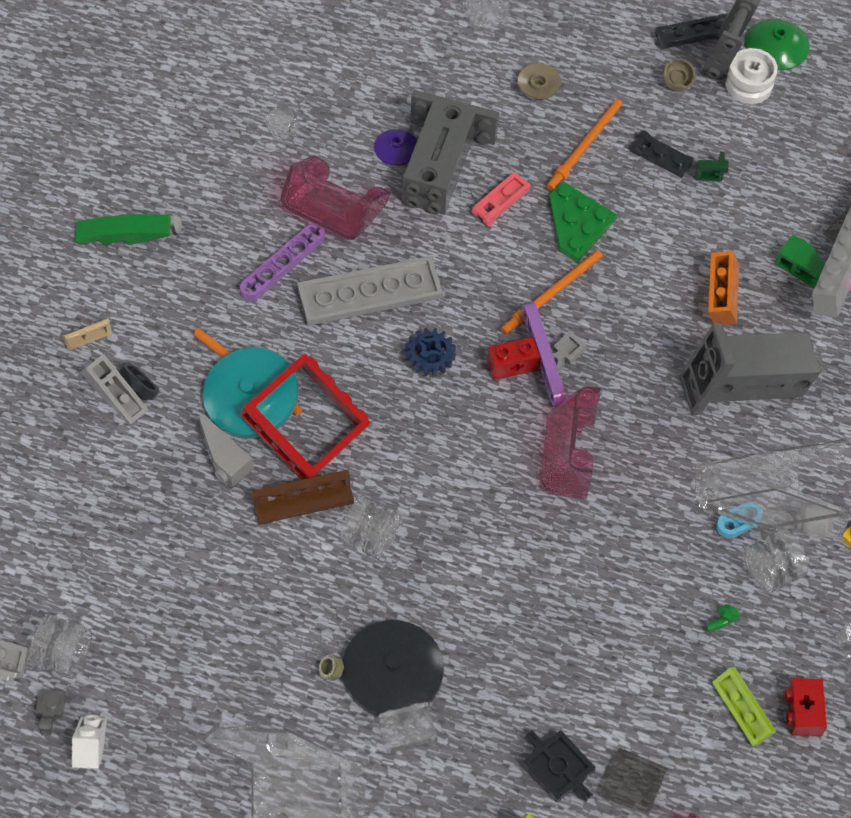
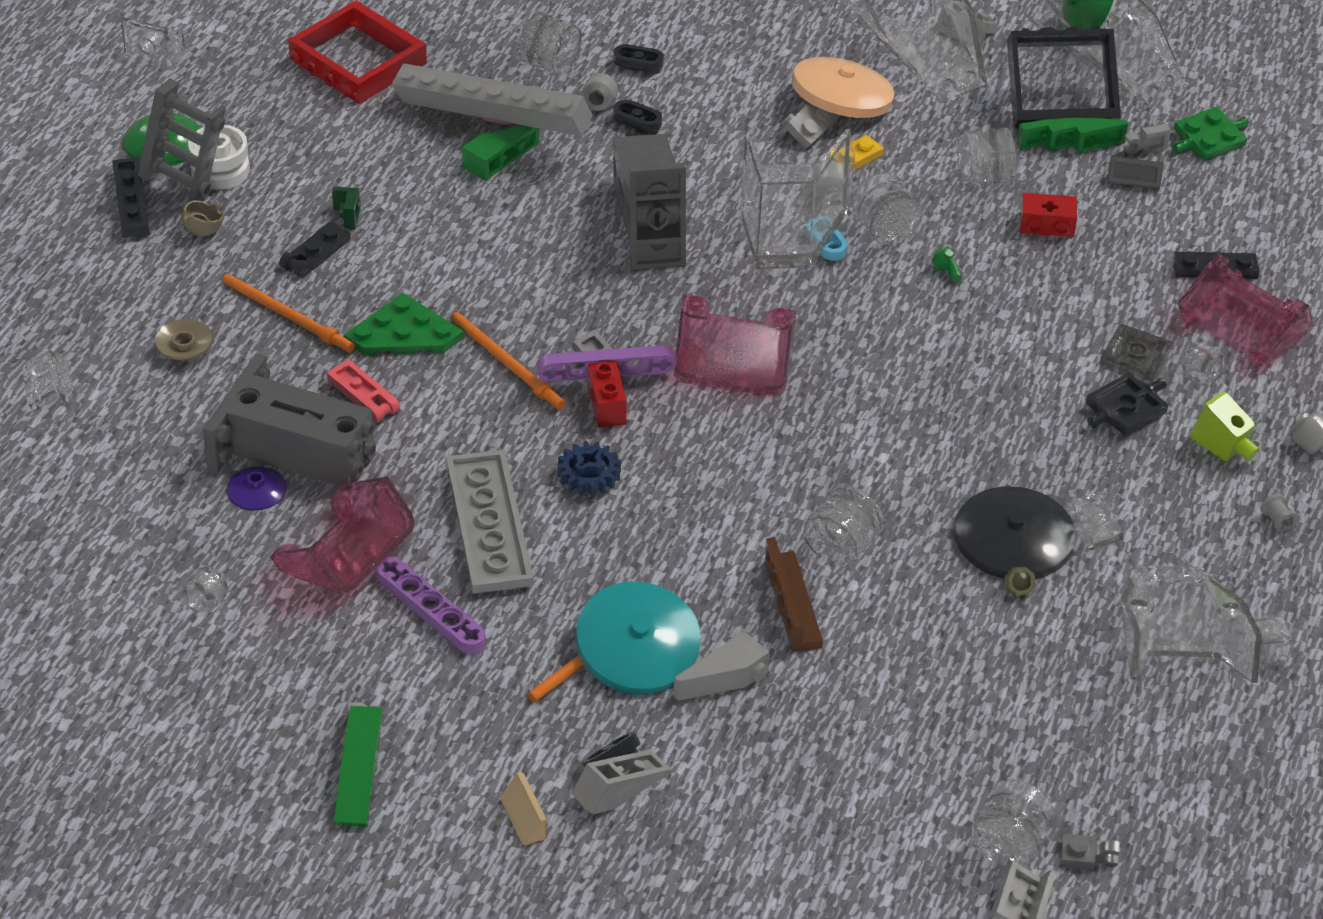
camera: 85 degrees left, 15 degrees down
(88, 742) = (1131, 805): white slope -> none
(279, 443) = (747, 591): red window -> none
(724, 288) = (527, 211): orange brick -> none
(744, 706) = (1049, 259): lime plate -> none

